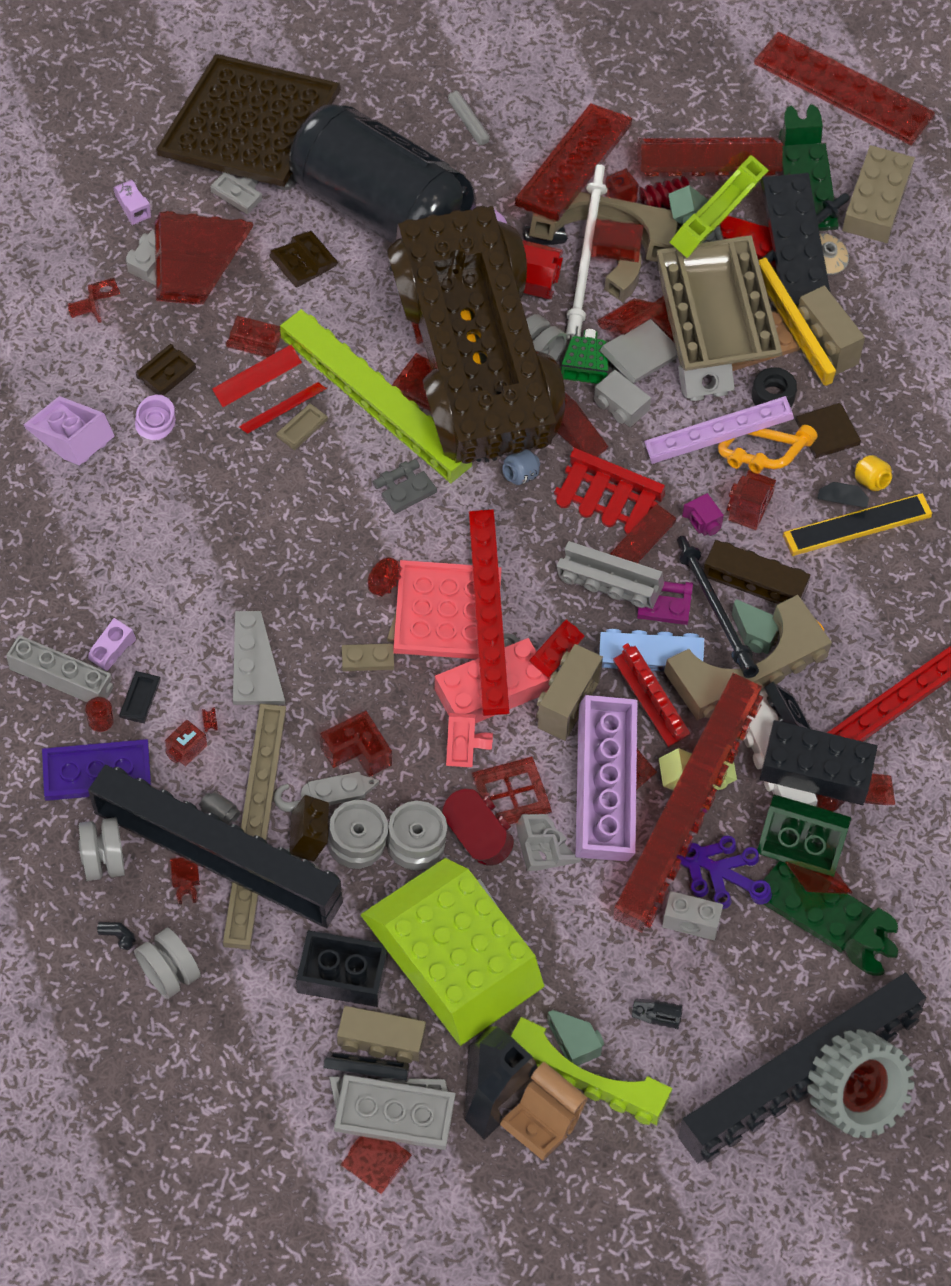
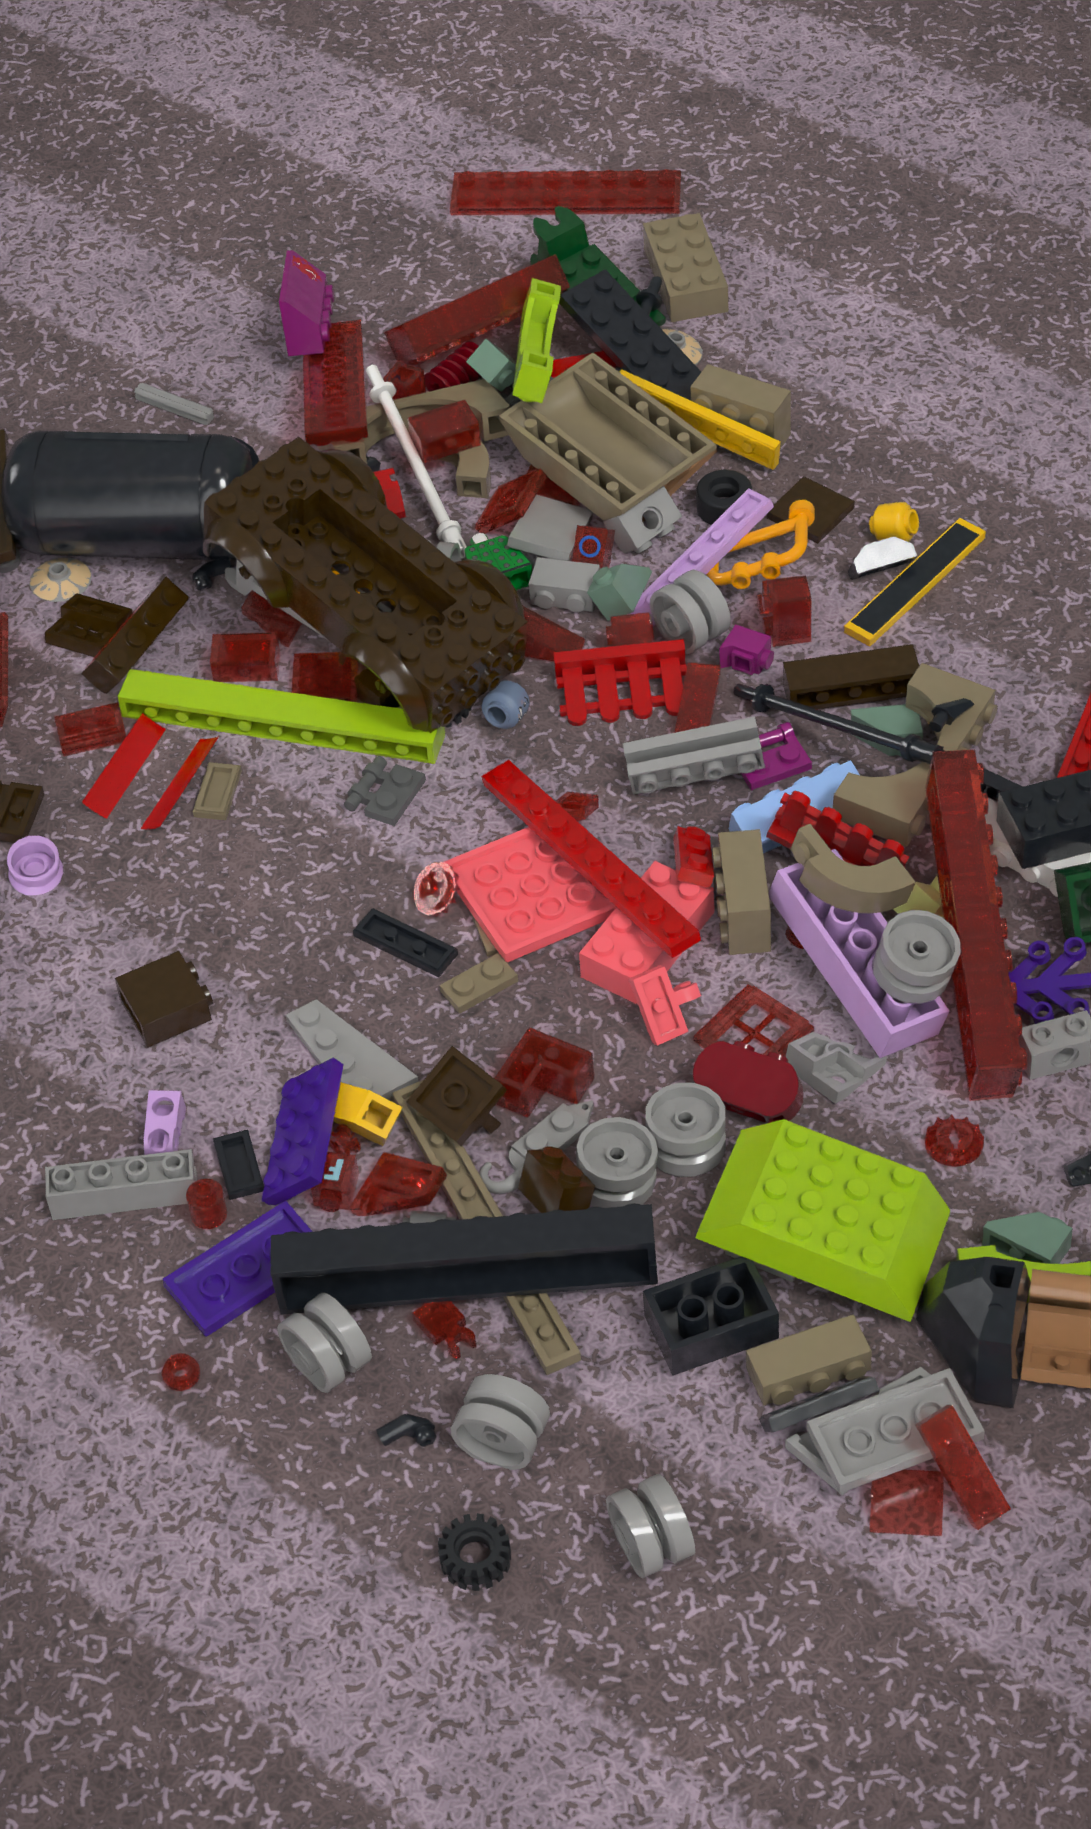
camera: 25 degrees left, 10 degrees down
(11, 809) = (180, 1362): none -> clear red plate
(97, 1020) = (474, 1531): none -> black tyre
(168, 558) = (164, 998): none -> dark brown brick
(186, 699) = (302, 1132): none -> dark purple plate
(206, 1083) = (650, 1525): none -> light grey wheel
(220, 769) = (398, 1185): none -> clear red wing
(230, 707) = (366, 1113): none -> yellow slope
(292, 732) = (458, 1097): none -> dark brown bracket
(309, 220) = (60, 579): none -> tan dish
(323, 284) = (135, 635): none -> dark brown brick
(343, 602) = (405, 942): none -> black tile
(382, 338) = (245, 657): none -> clear red brick
(416, 1161) = (963, 1466): none -> clear red plate
(515, 566) = (579, 804): none -> clear red plate
(585, 951) = (941, 1147): none -> clear red gear
(595, 90) = (305, 306): none -> magenta slope
(622, 733) = (848, 885): none -> dark tan arch
(623, 820) = (916, 956): none -> light grey wheel
(638, 460) = (630, 629): none -> clear red brick
(652, 422) = (618, 588): none -> sand green slope
(659, 381) = (593, 545): none -> clear red brick
(684, 466) = (690, 610): none -> light grey wheel
(785, 642) = (948, 713): none -> black bar

